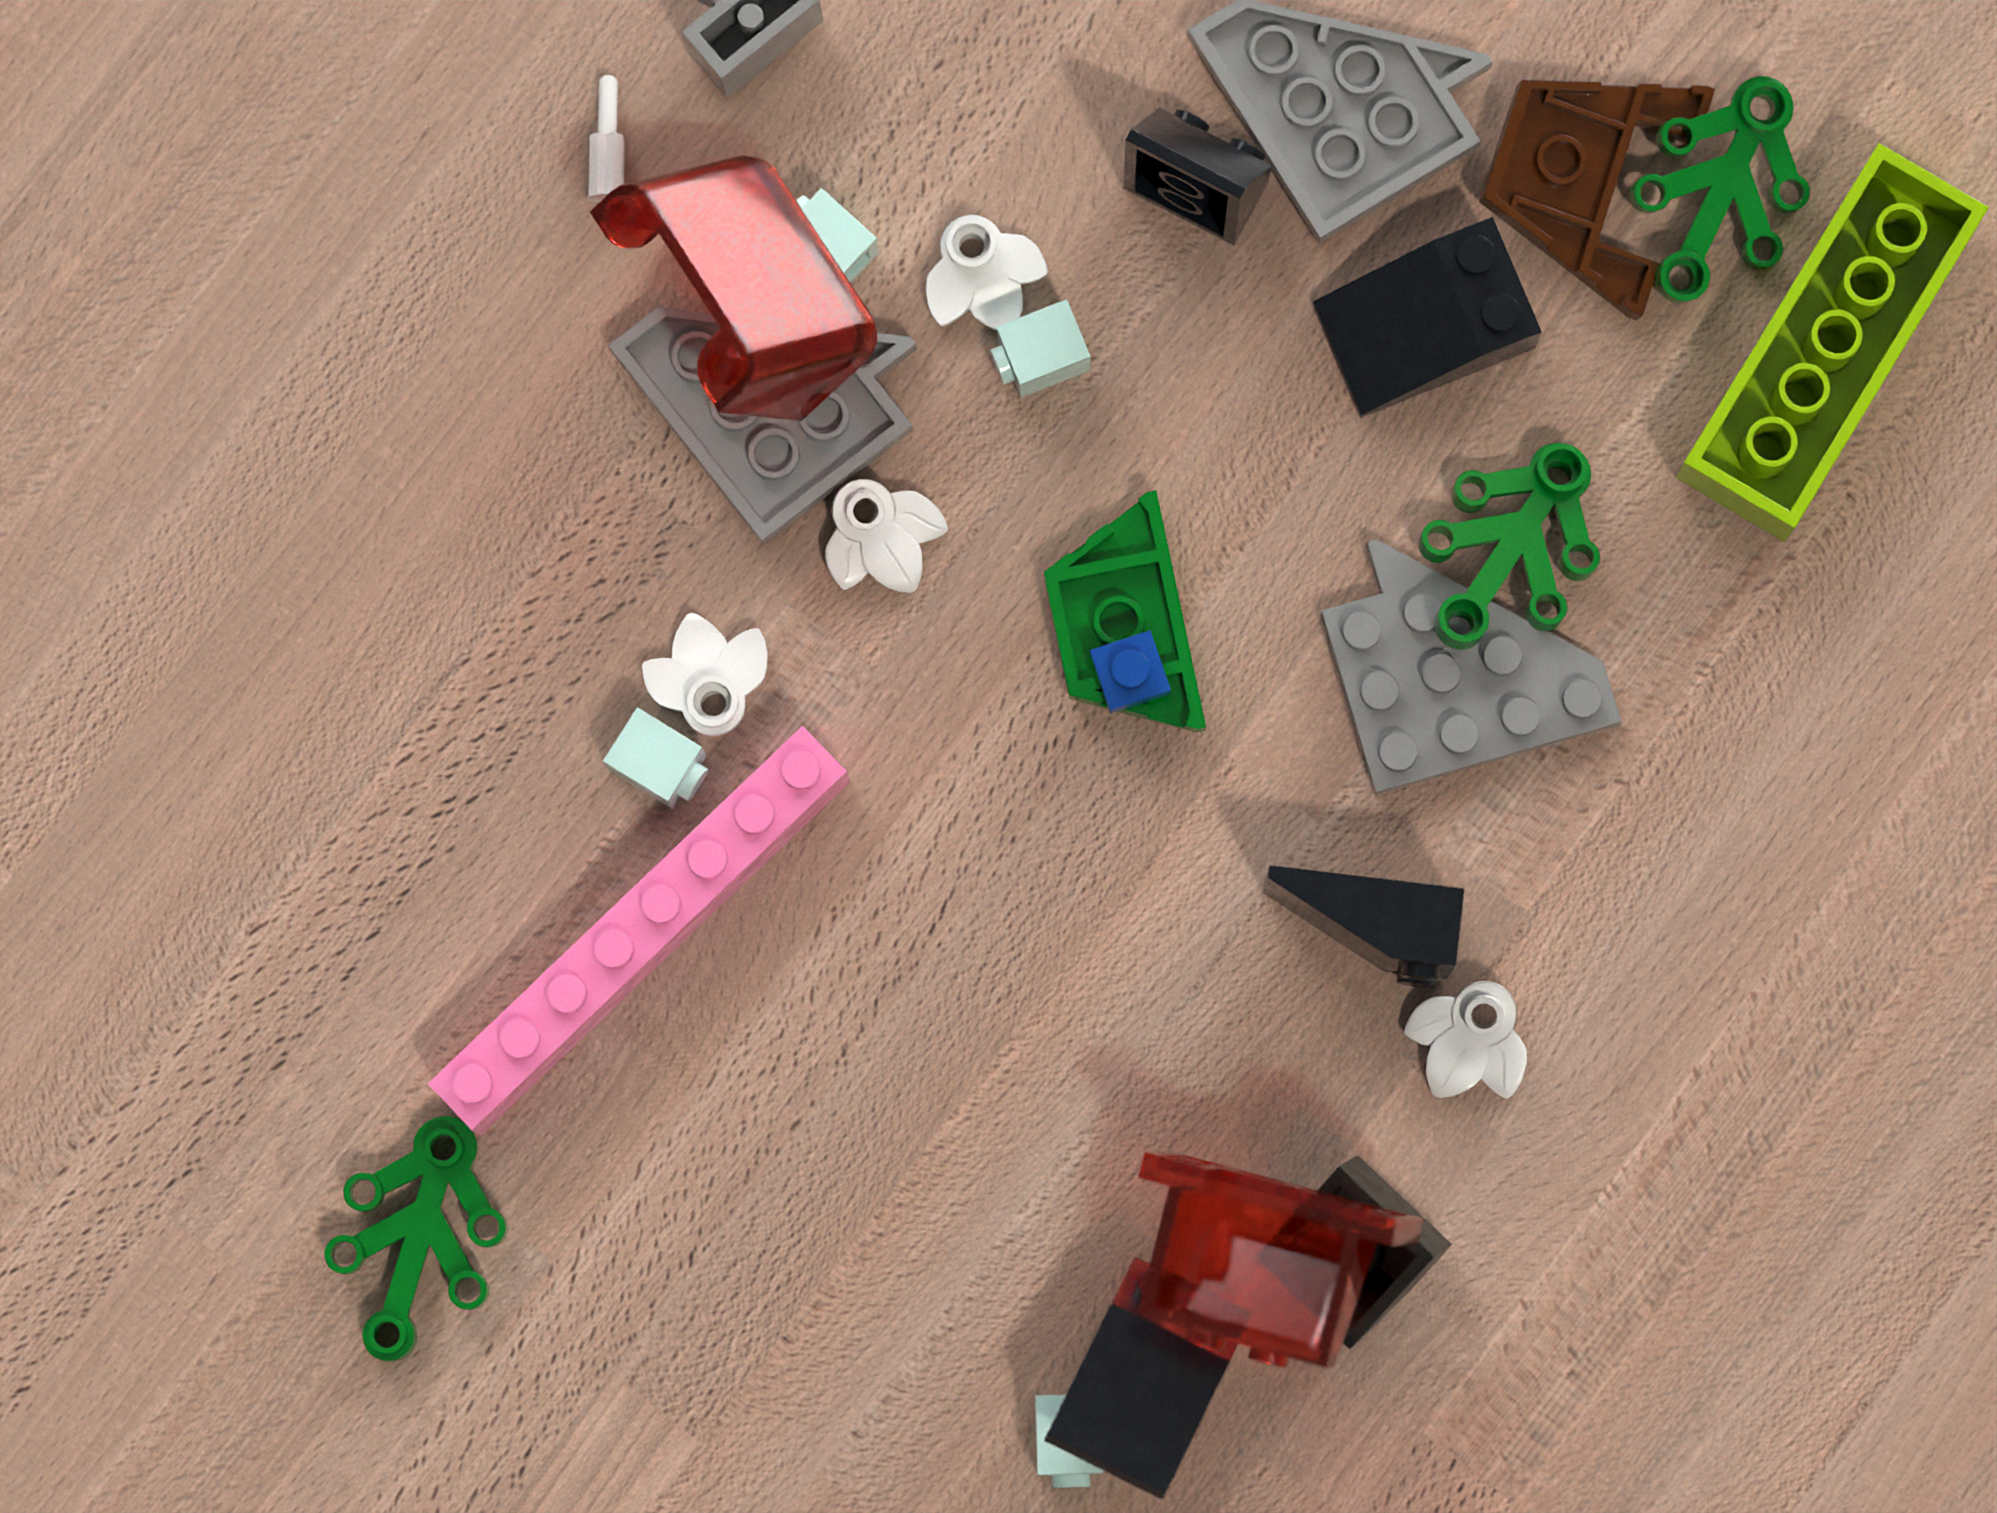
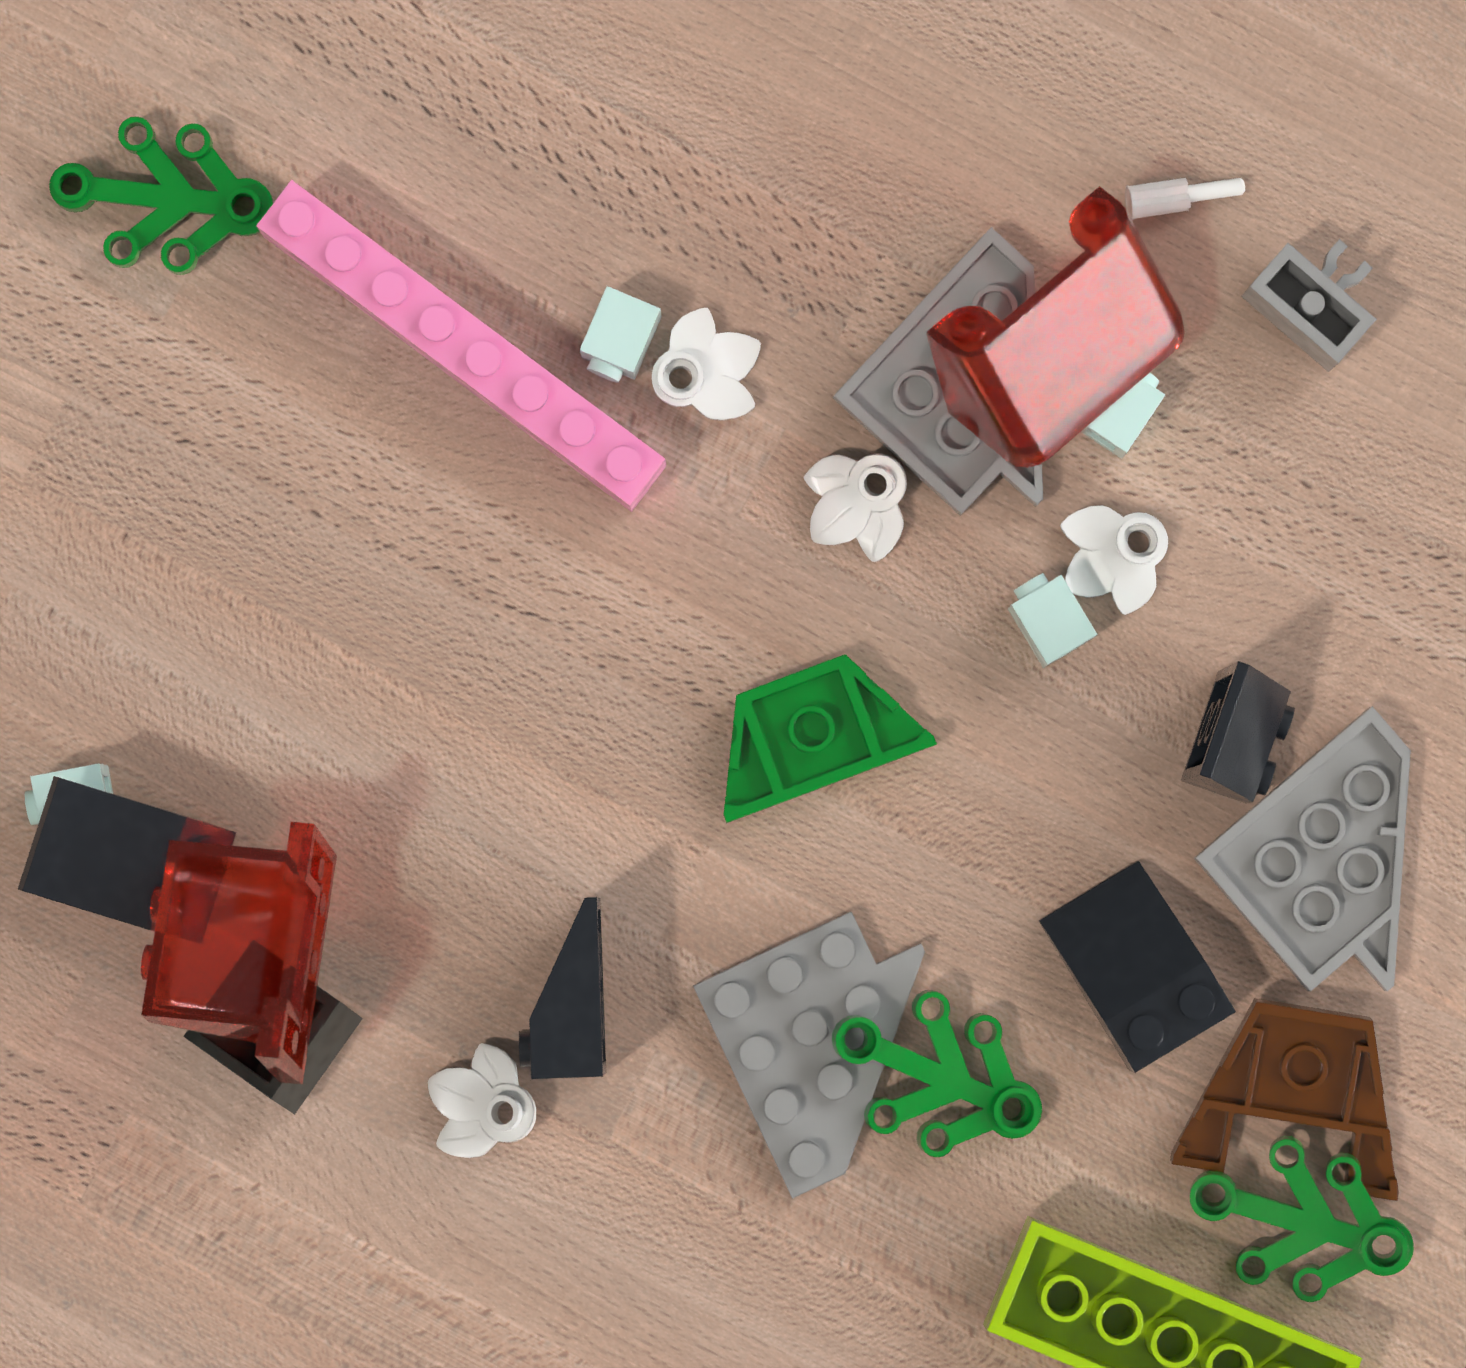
camera: 75 degrees right, 5 degrees up
(1130, 672) = (764, 746): blue plate -> none

